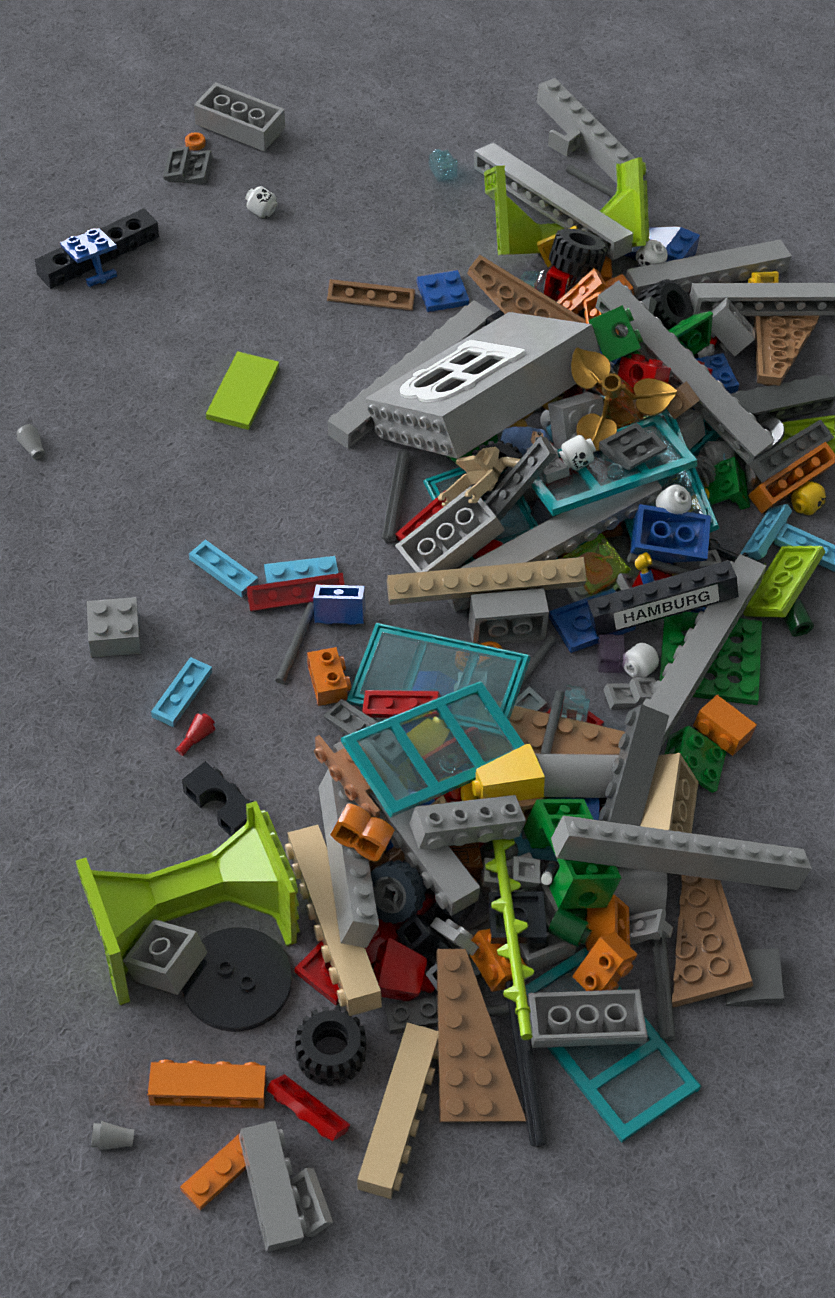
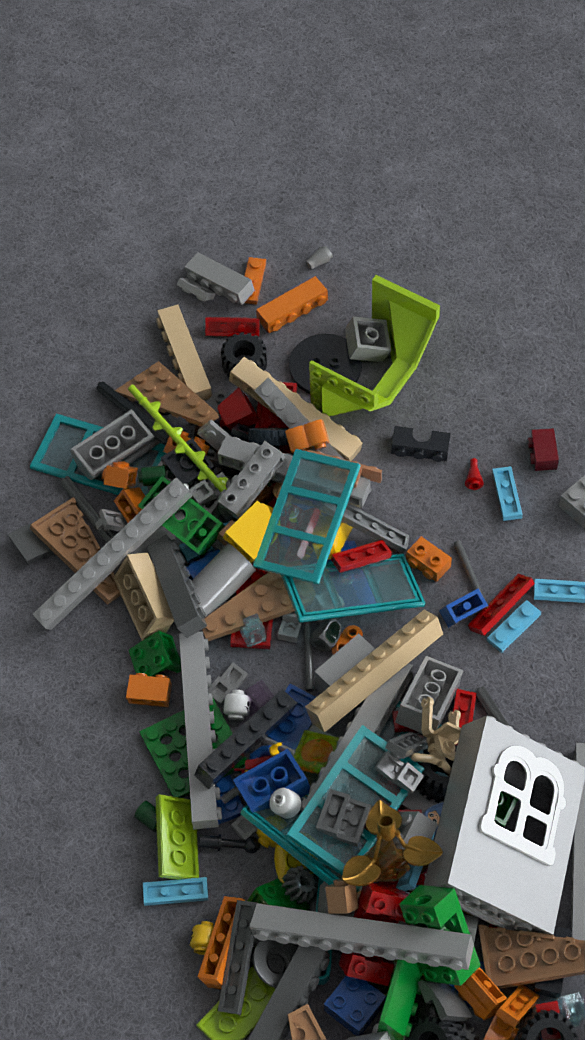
camera: 150 degrees right, 5 degrees up
(98, 708) = (544, 449): none -> dark red brick
(552, 722) = (257, 606): dark grey bar -> none
(577, 452) = (379, 783): white head -> none
(767, 531) = (216, 877): medium azure plate -> none

